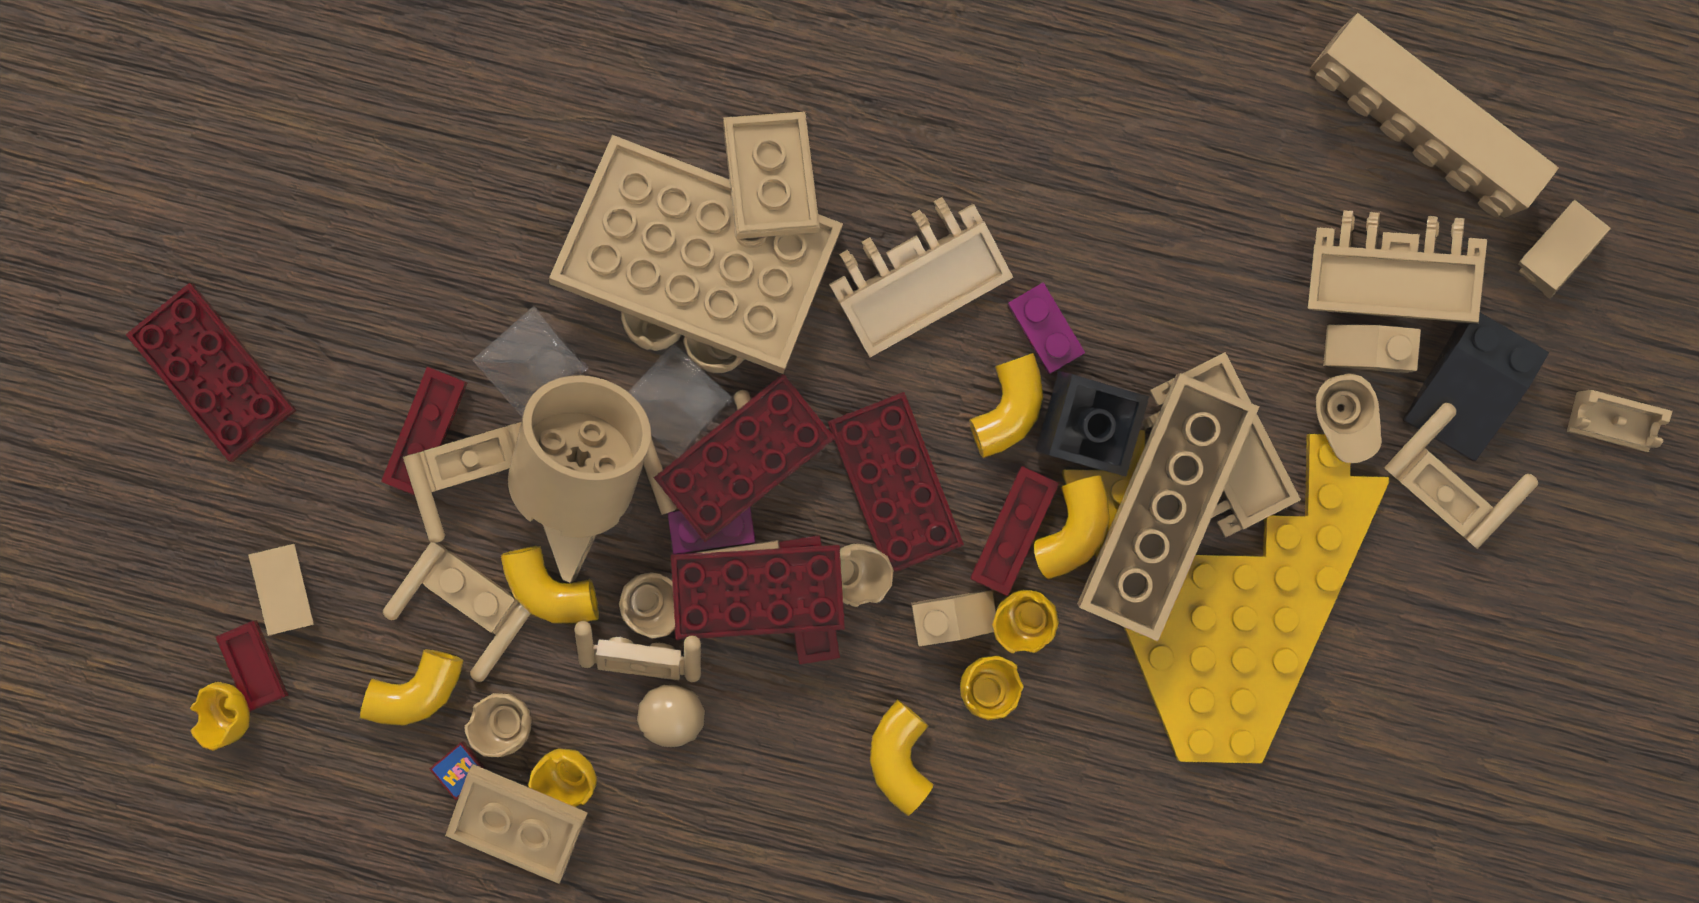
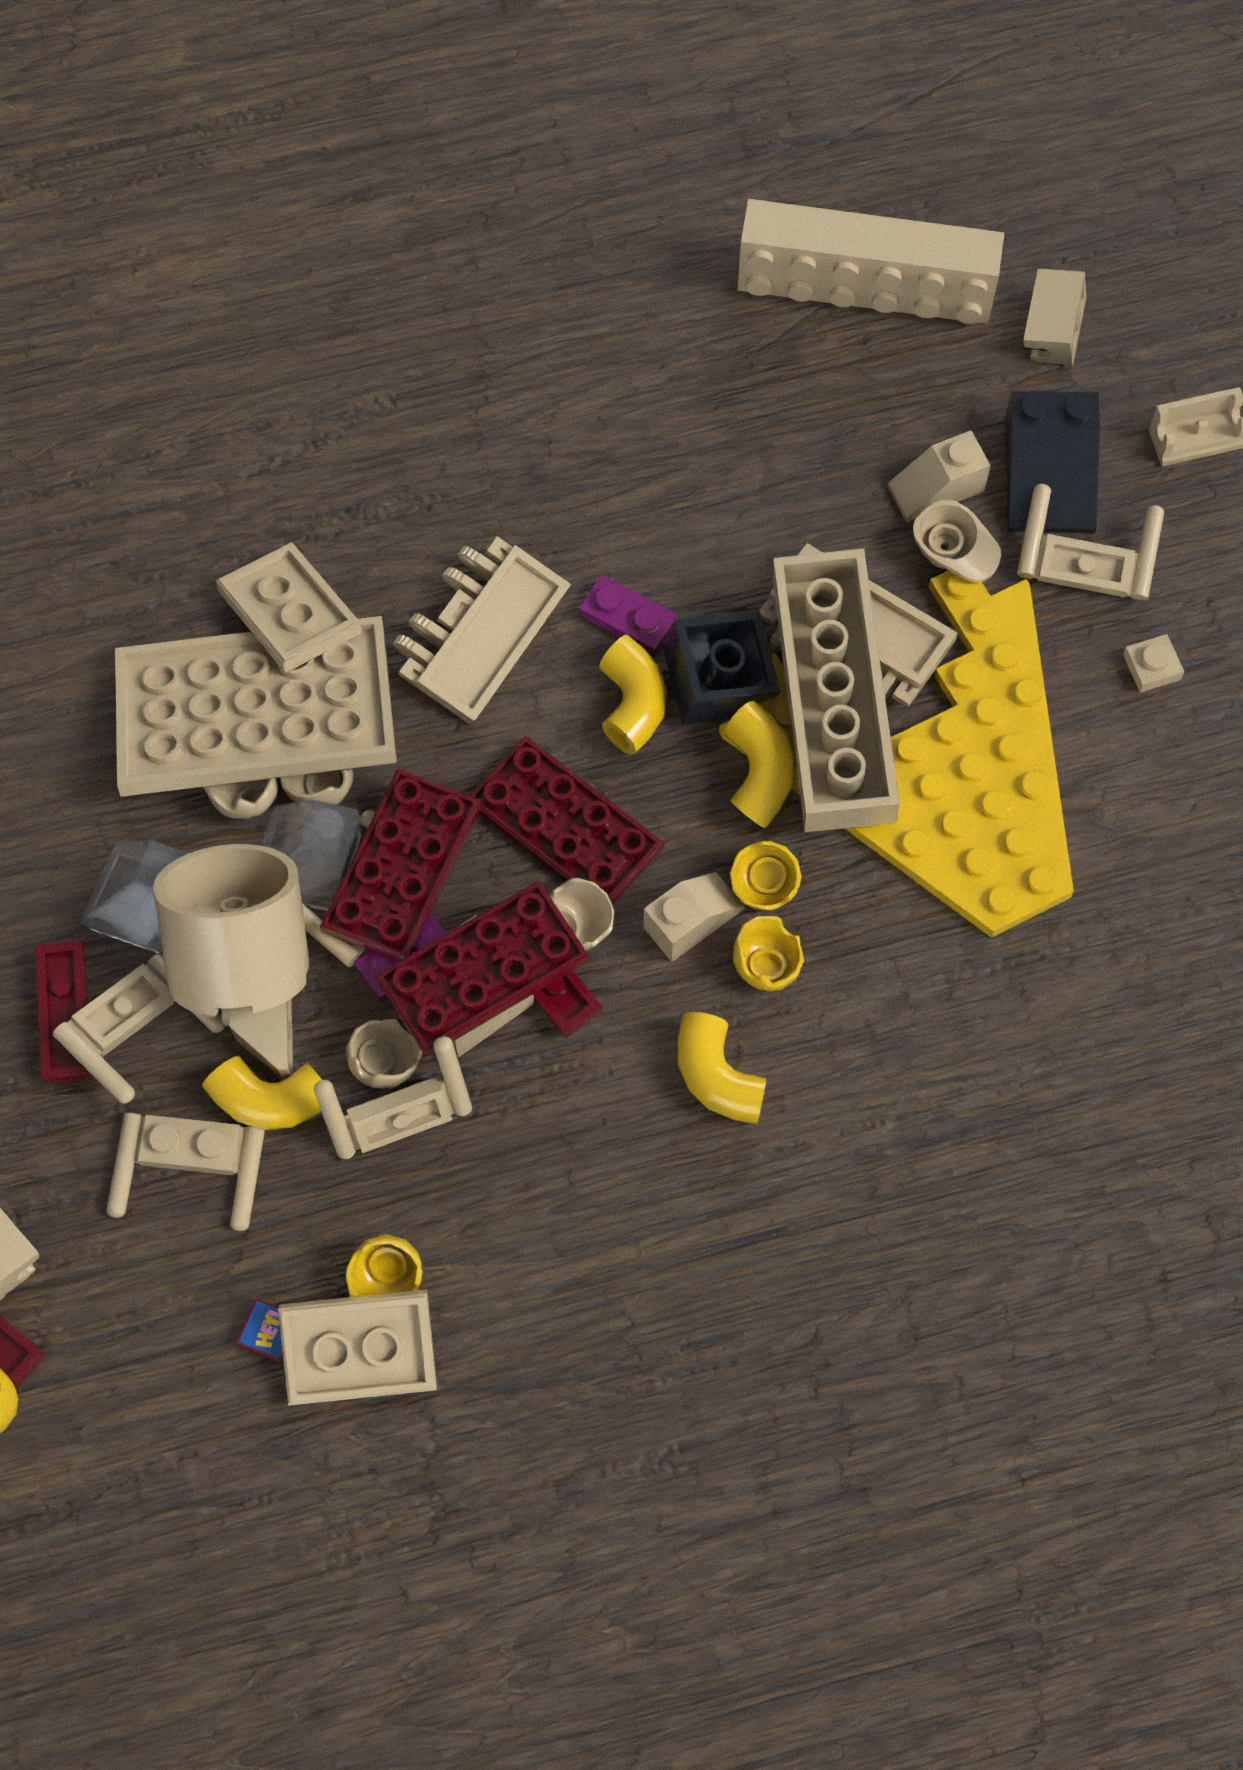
camera: 30 degrees left, 20 degrees down
(417, 698) = (188, 1274): yellow cylinder -> none
(498, 725) = (287, 1254): tan hair -> none
(670, 716) = (462, 1157): tan hair -> none
(1014, 530) = (704, 804): dark red plate -> none
(1397, 276) = (922, 401): tan hinge -> none
(1447, 604) = (1153, 663): none -> tan plate

